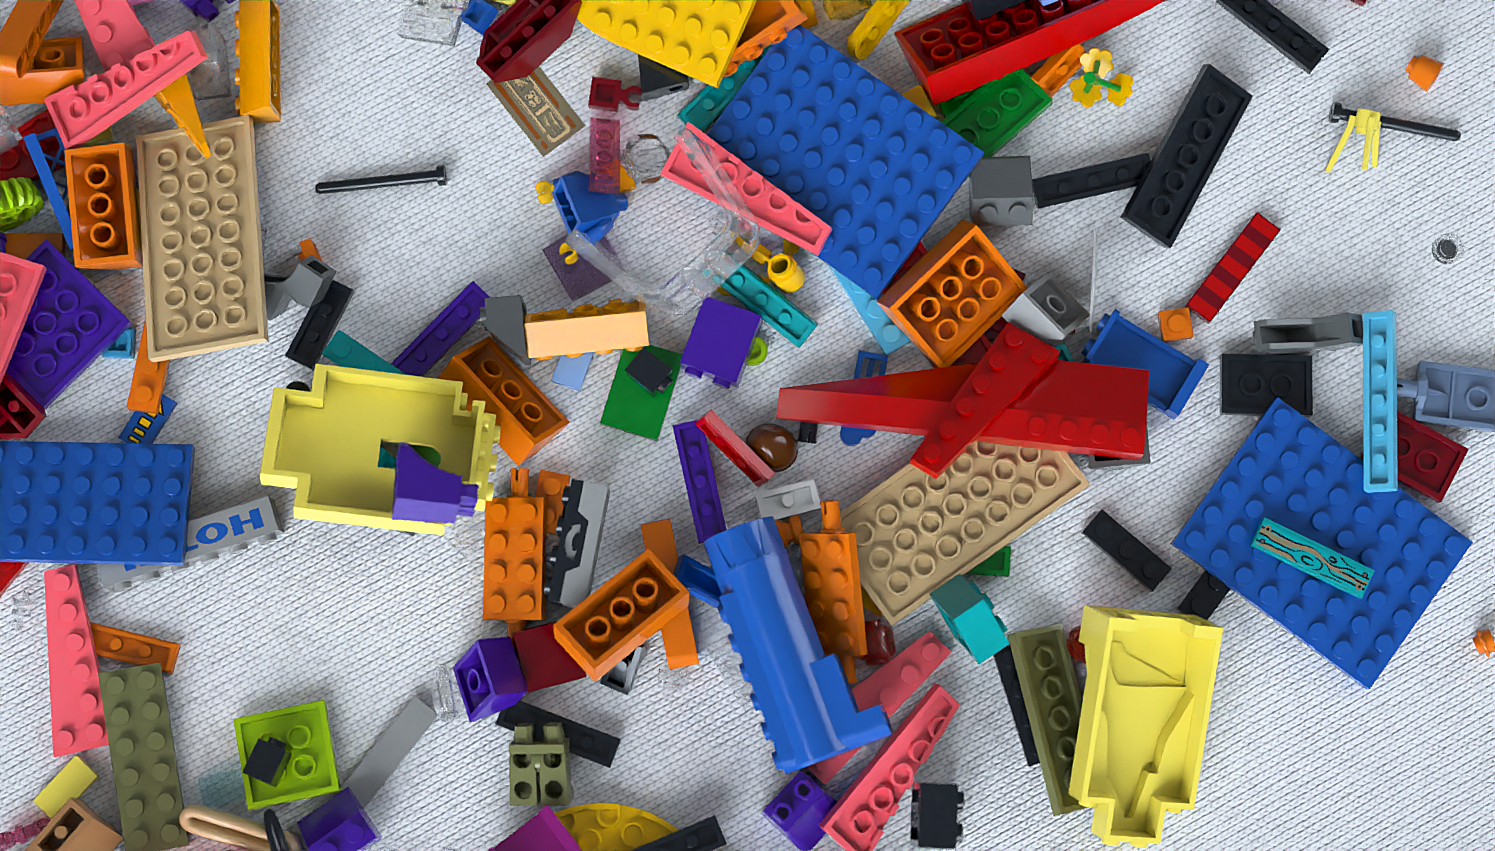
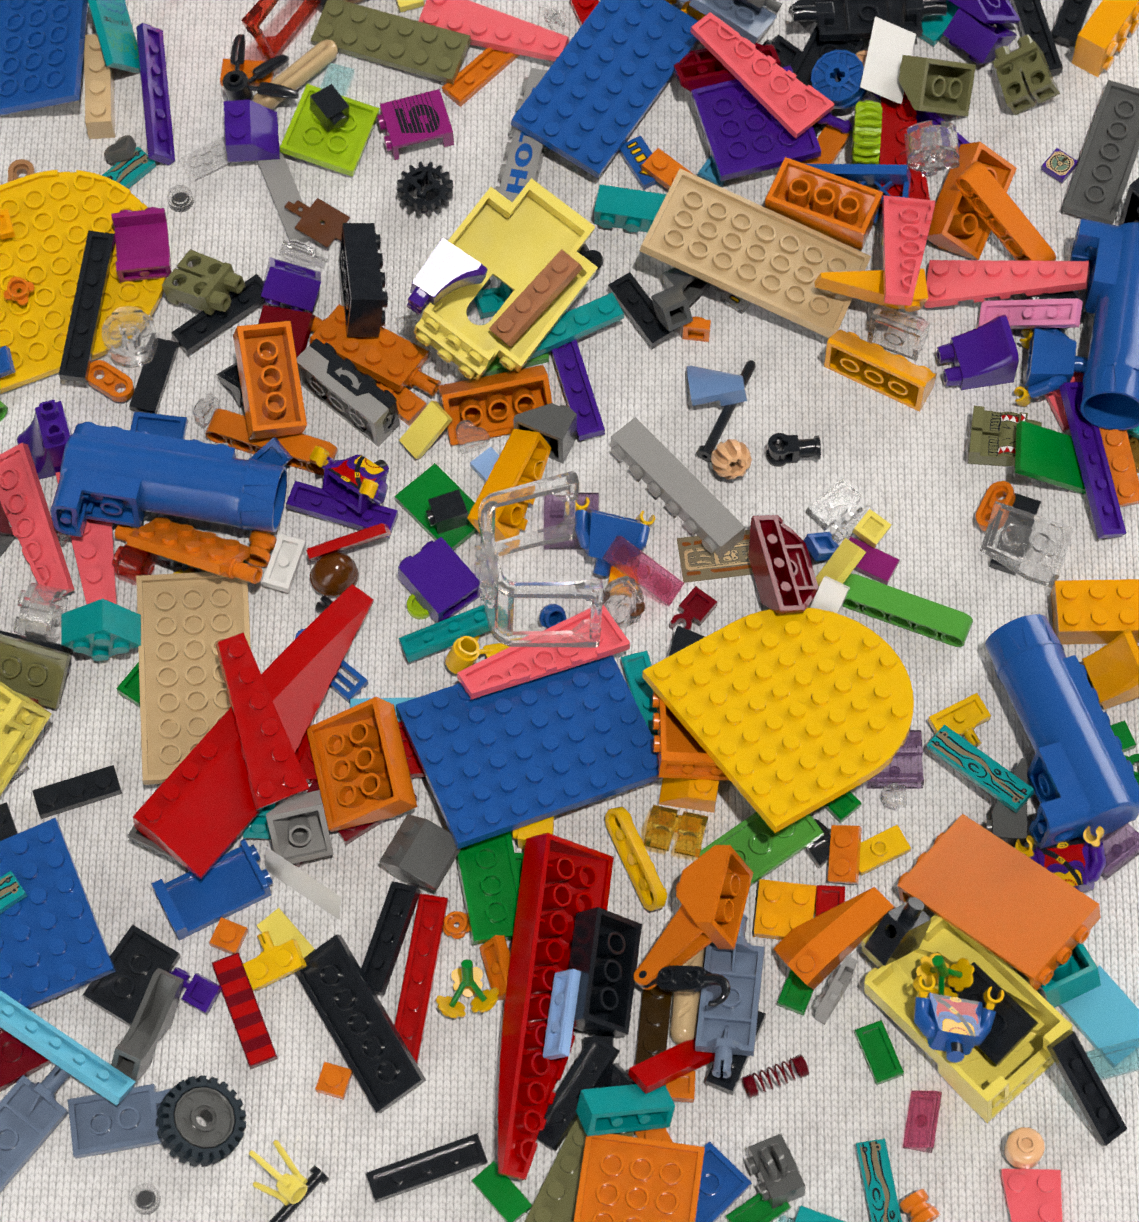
camera: 120 degrees right, 15 degrees down
(212, 394) = (626, 208): none -> teal brick
(230, 671) = (415, 121): none -> magenta panel
(297, 602) = (423, 180): none -> black gear
(365, 204) = (714, 385): none -> medium blue slope
(384, 403) = (536, 298): none -> nougat plate
(391, 95) = (791, 449): none -> black connector
(397, 711) = (311, 217): none -> reddish brown piece
(437, 143) = (731, 459): none -> light nougat piece
(451, 601) = (362, 280): none -> black brick
(494, 180) = (677, 487): none -> light grey brick
(552, 403) = (471, 437): none -> clear tile
(572, 448) = (425, 429): none -> light yellow tile
(647, 779) = (134, 351): none -> clear brick
(663, 758) = (154, 378): none -> black tile
(667, 479) = (354, 479): none -> torso
(696, 217) = (551, 615): none -> blue plate
(696, 797) = (111, 382): none -> orange plate
(716, 717) = (160, 424): none -> blue tile
(982, 693) = (40, 612): none -> clear brick
(1049, 130) = (453, 918): none -> orange plate
(1104, 136) = (420, 971): none -> red tile
(1145, 273) = (283, 930): none -> light yellow tile
(1177, 265) = (273, 962): none -> yellow plate
(1241, 314) = (200, 991): none -> dark purple plate
(1245, 152) = (334, 1080): none -> orange plate
(1364, 253) = (186, 1136): none -> wheel
(1389, 288) = (106, 1128): none -> sand blue tile

